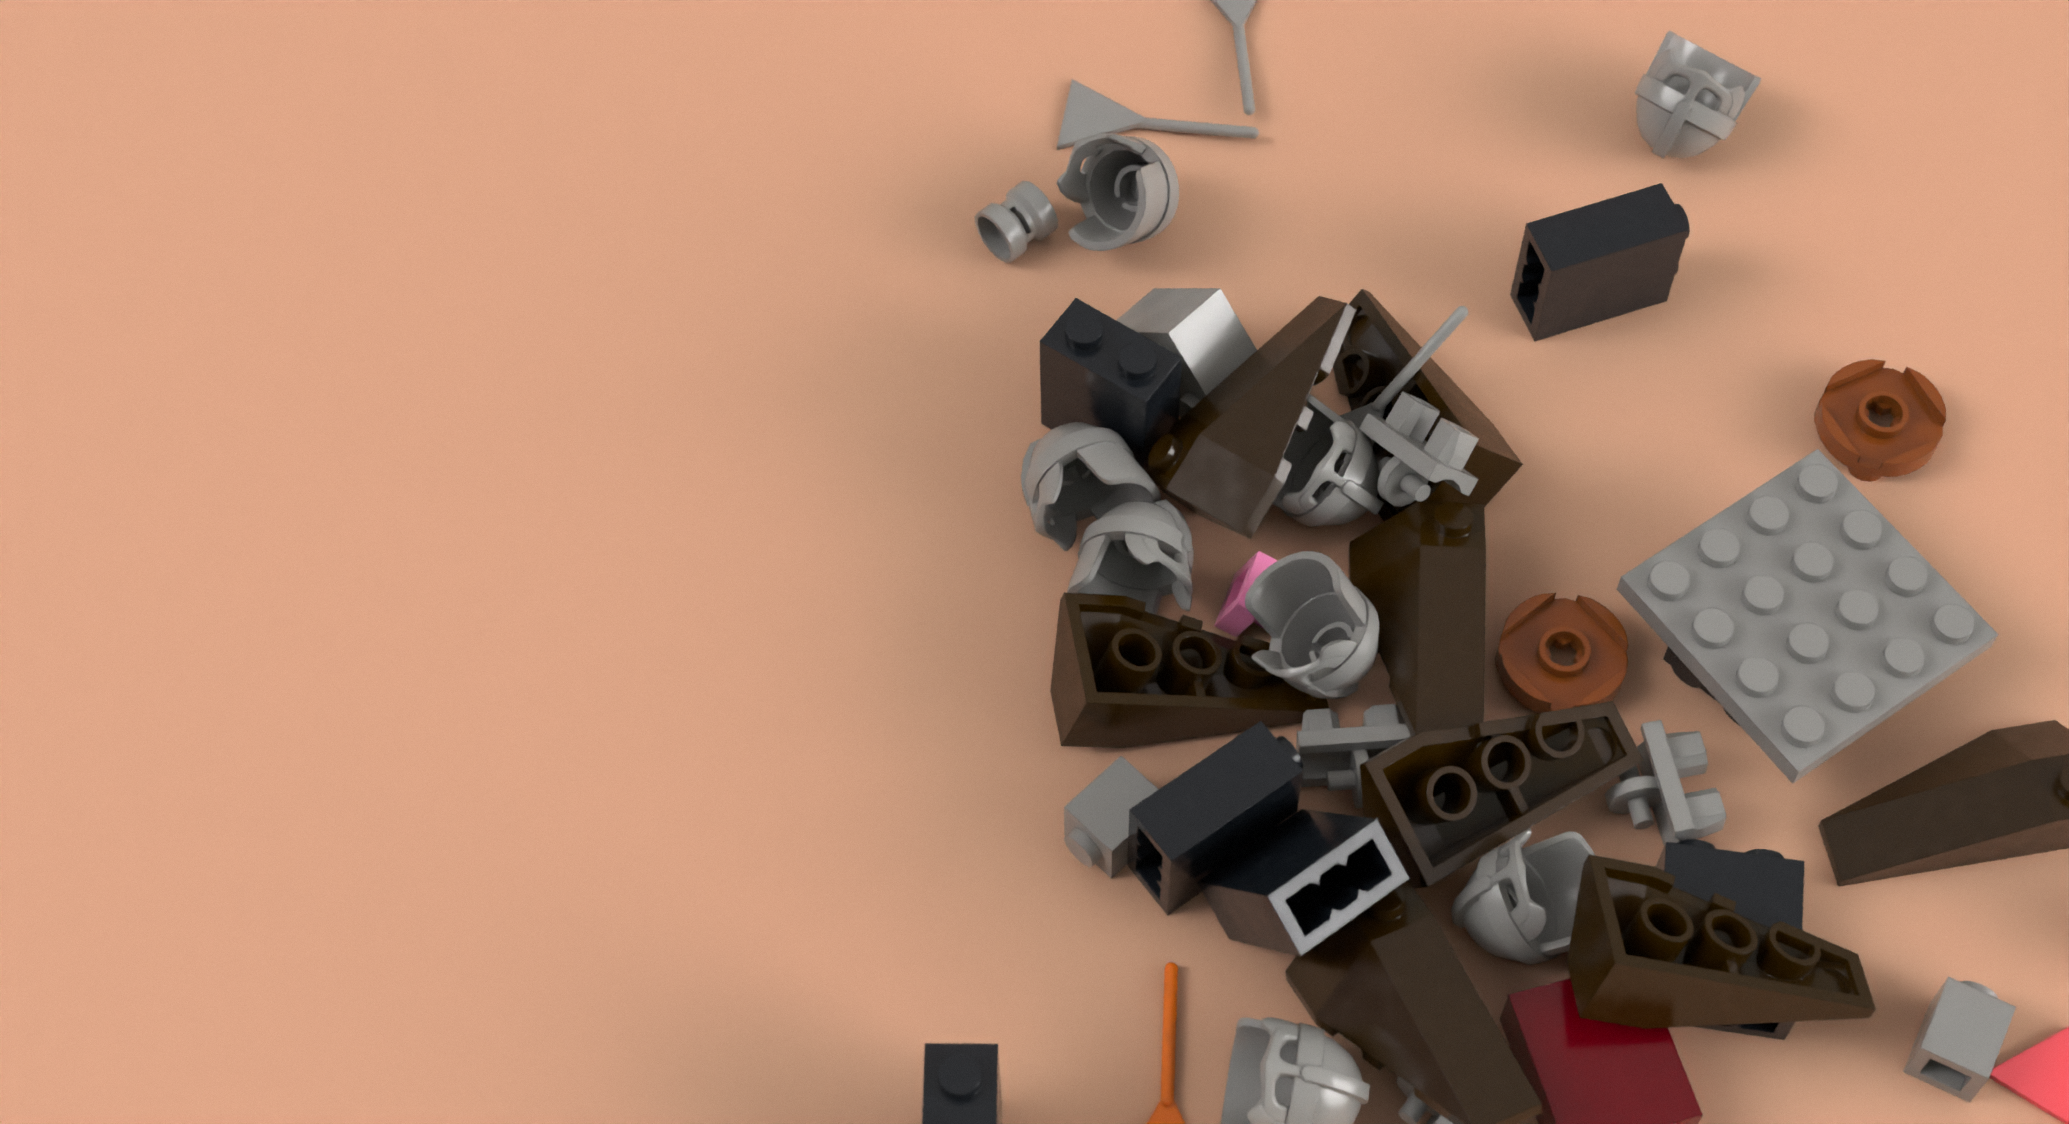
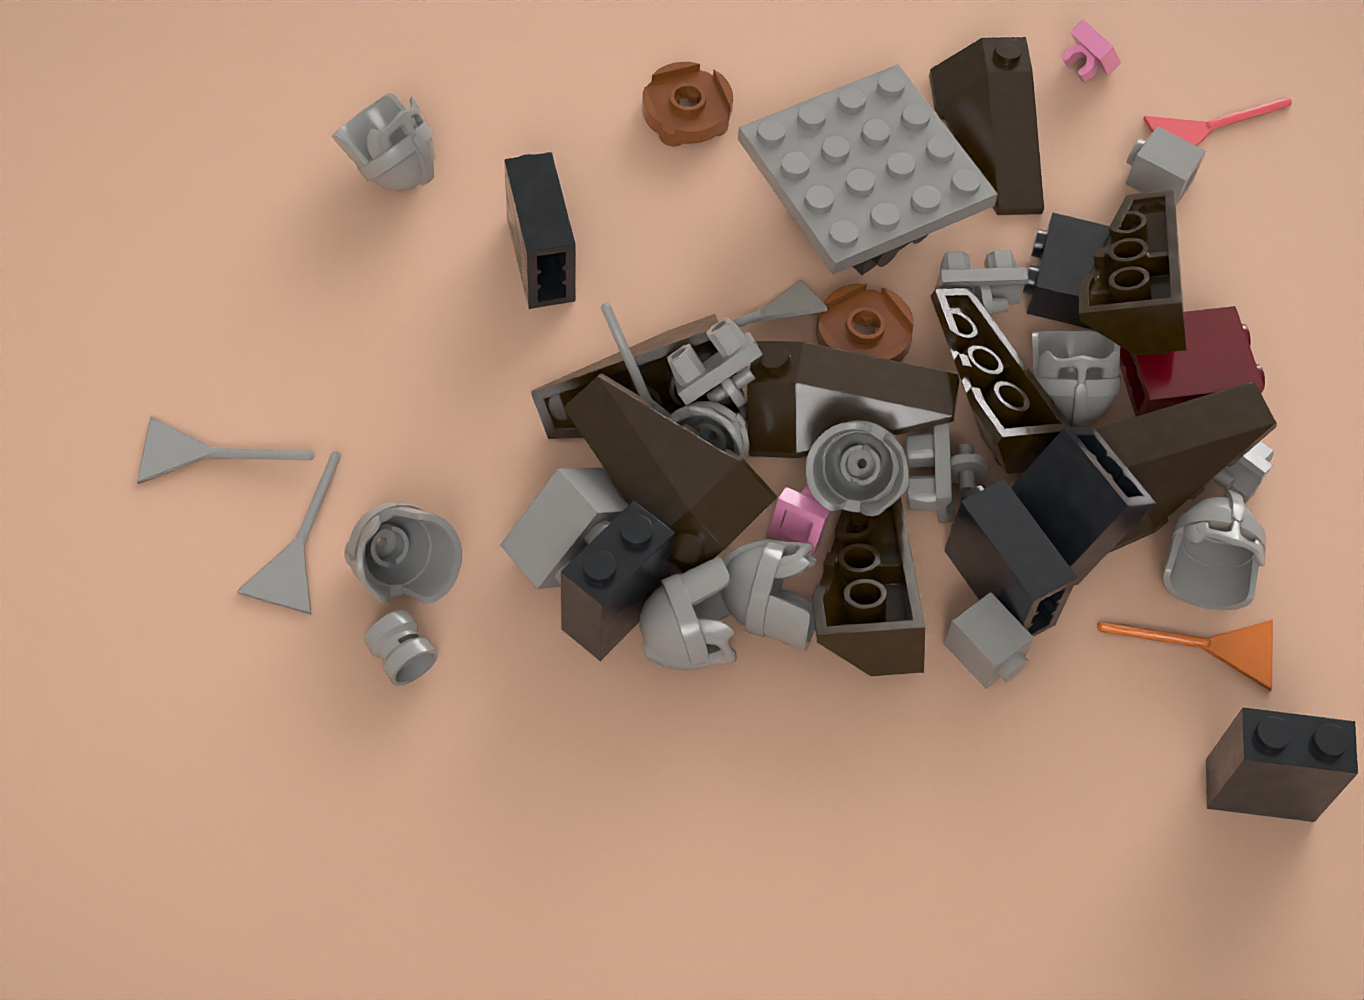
camera: 90 degrees left, 0 degrees up
(1577, 568) = (793, 302): none -> light grey piece

